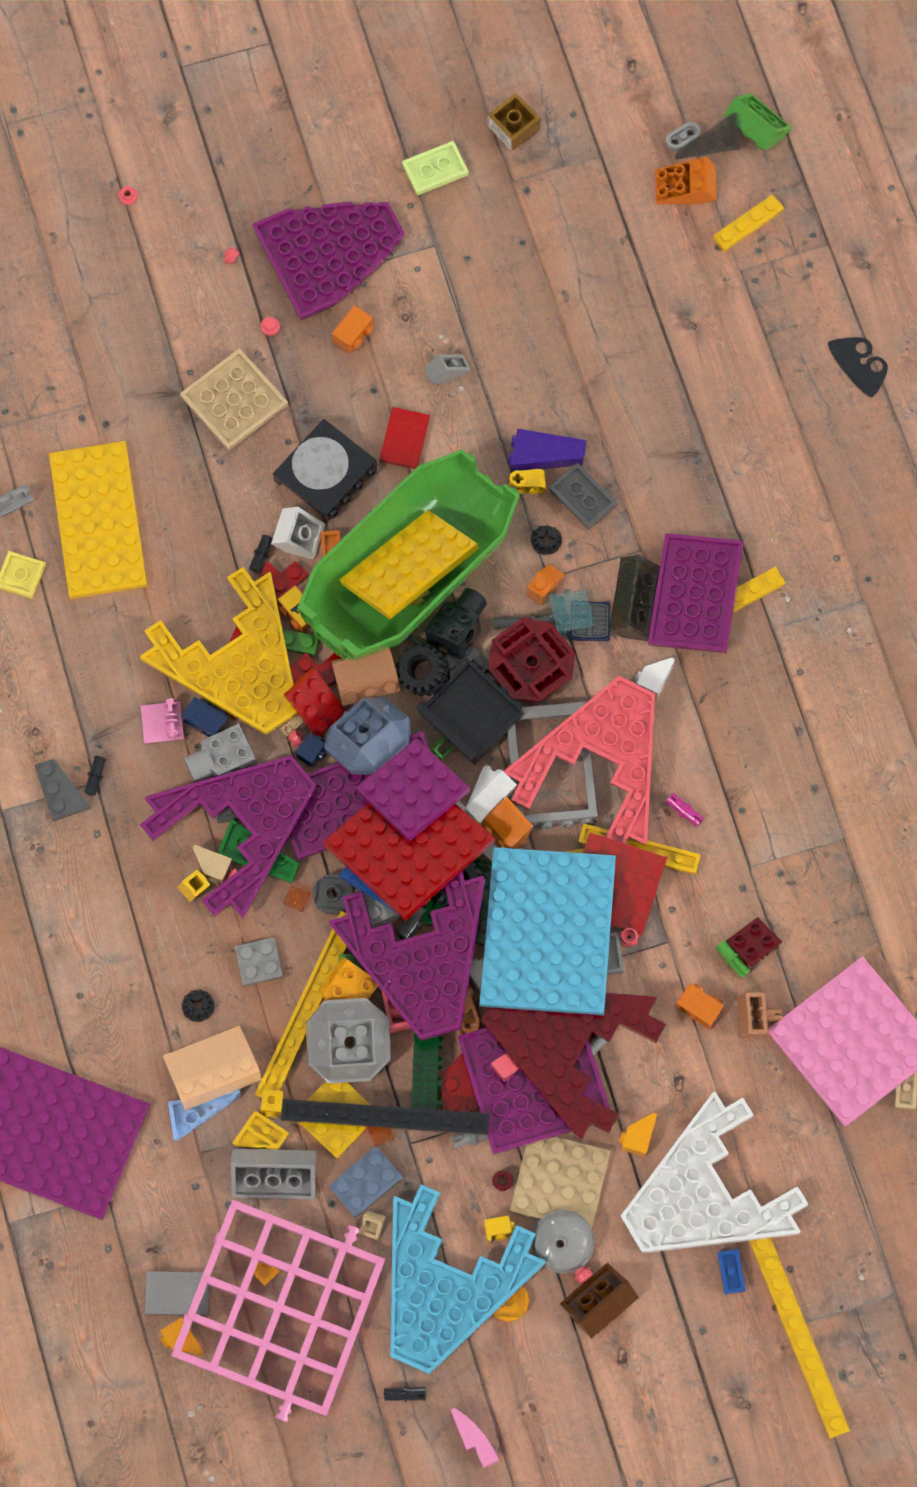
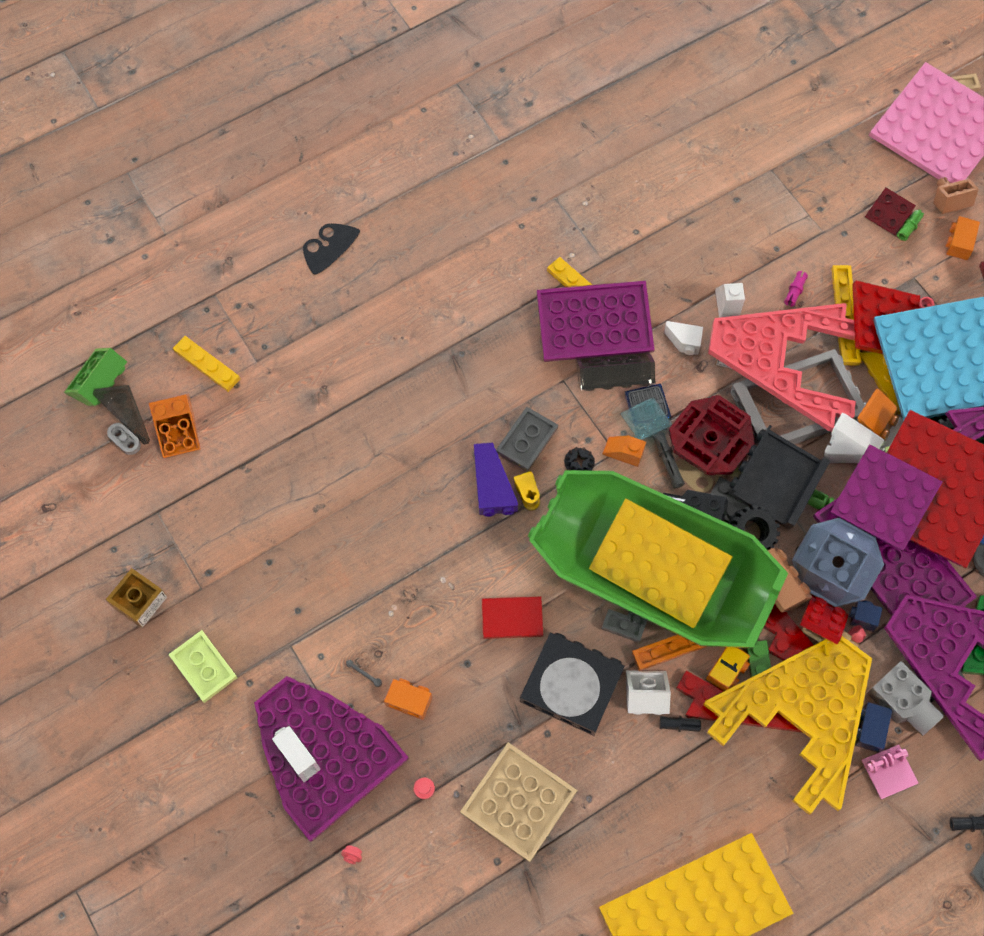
camera: 105 degrees left, 5 degrees down
(327, 222) = (296, 753): none -> white slope
(378, 310) = (377, 682): none -> dark grey hinge
(446, 368) = (428, 594): light grey slope -> none
(685, 730) = (730, 299): none -> white slope

